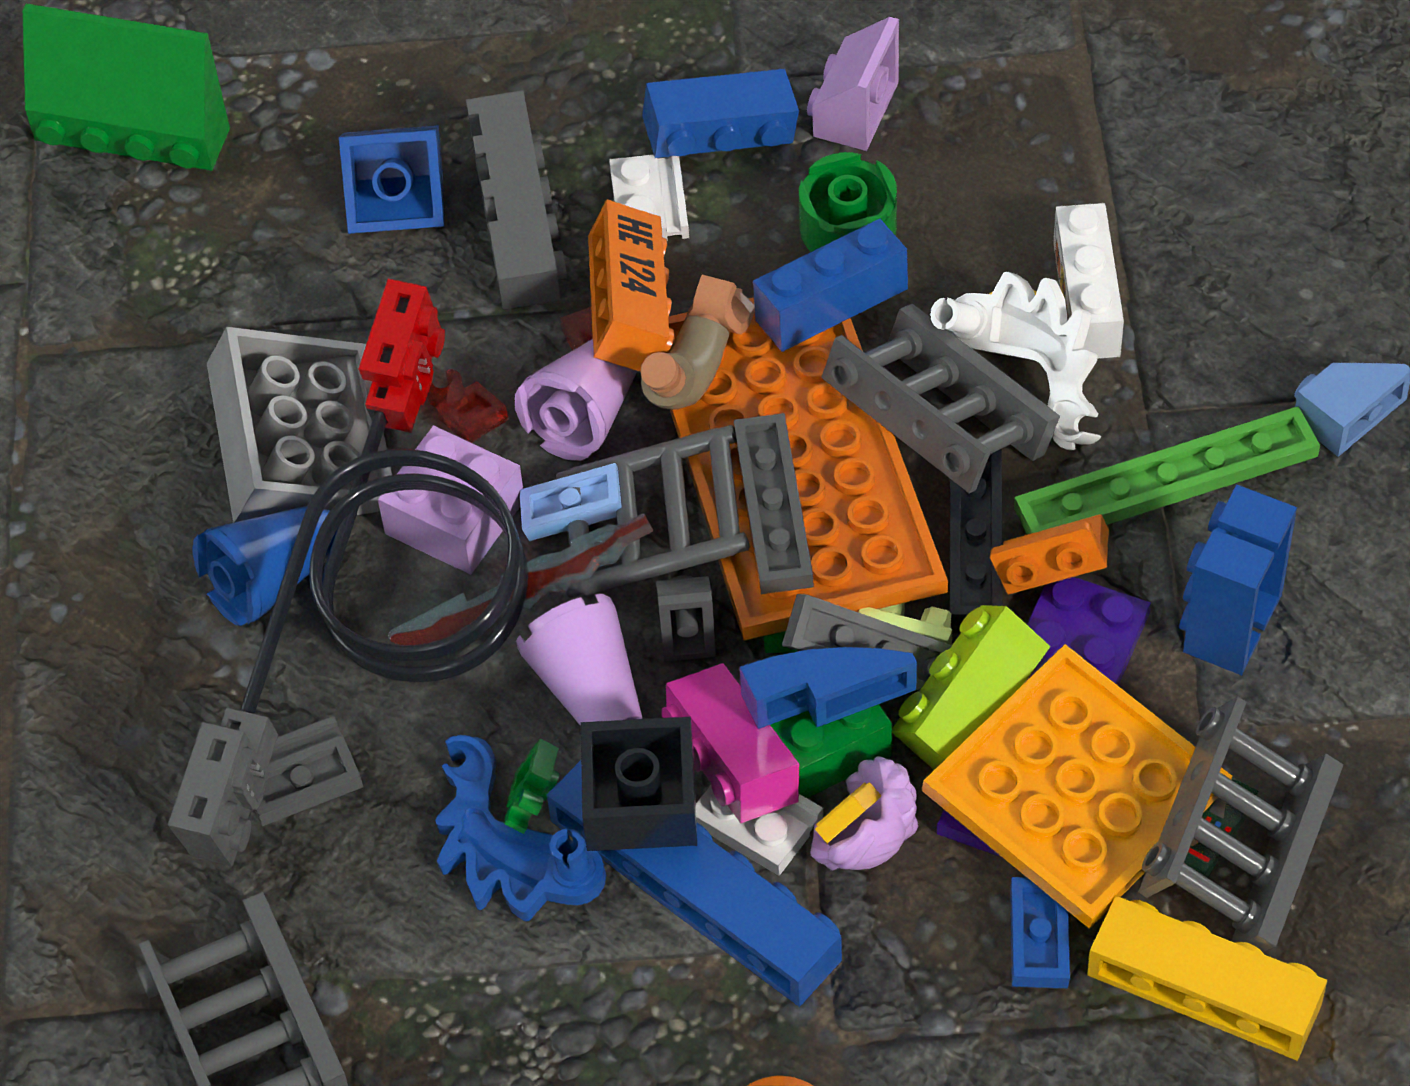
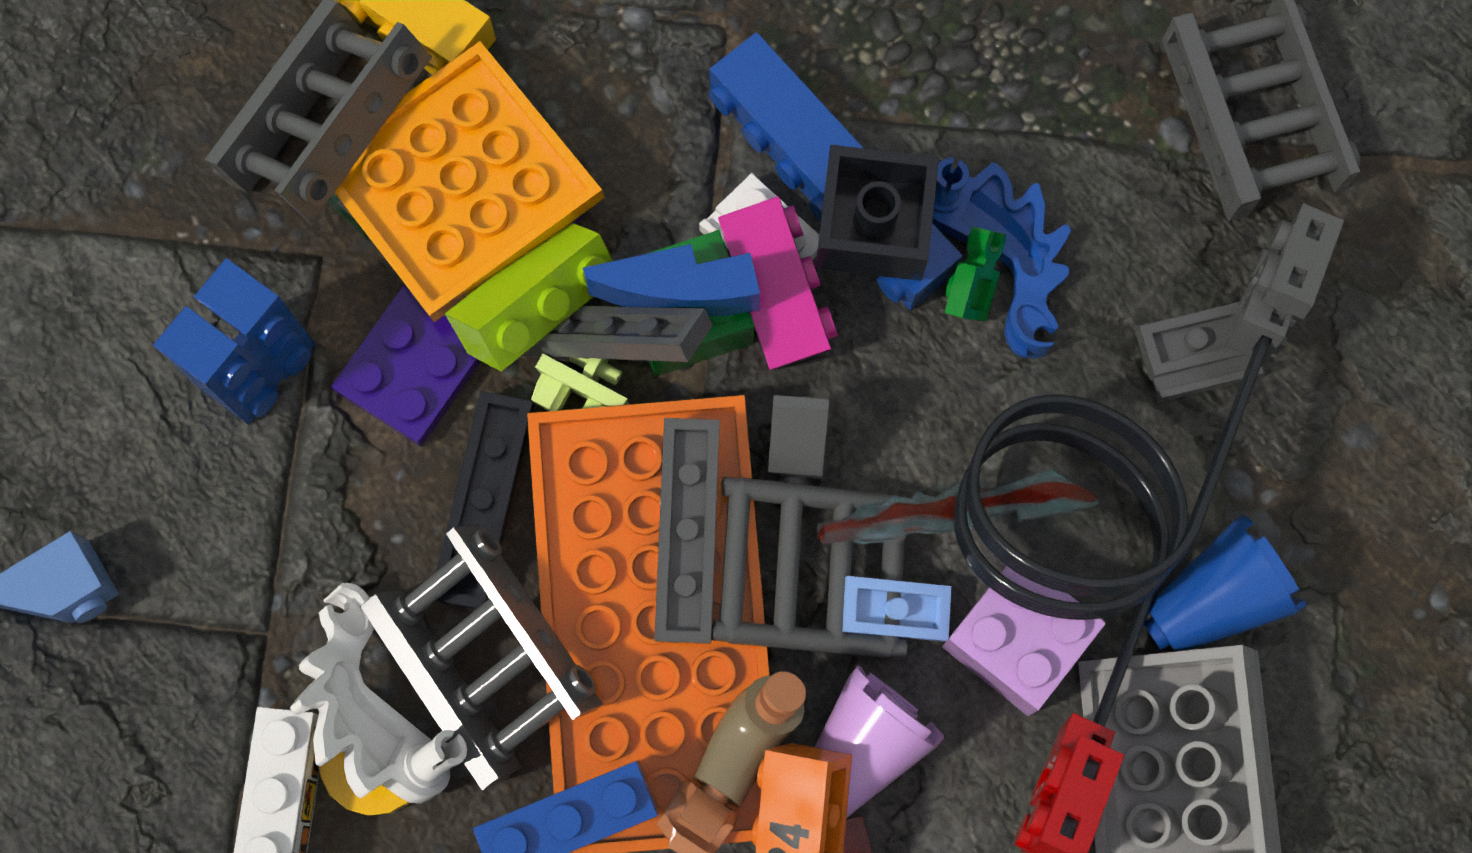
camera: 175 degrees left, 20 degrees up
(467, 410) = (992, 761): clear red plate -> none
(583, 660) = (906, 399): lavender cone -> none
(847, 811) = (679, 177): yellow tile -> none
(878, 830) = (664, 186): lavender hair -> none
(1038, 937) = (533, 56): blue plate -> none
(1052, 554) = (412, 436): orange bracket -> none
(1172, 473) = (268, 531): bright green plate -> none

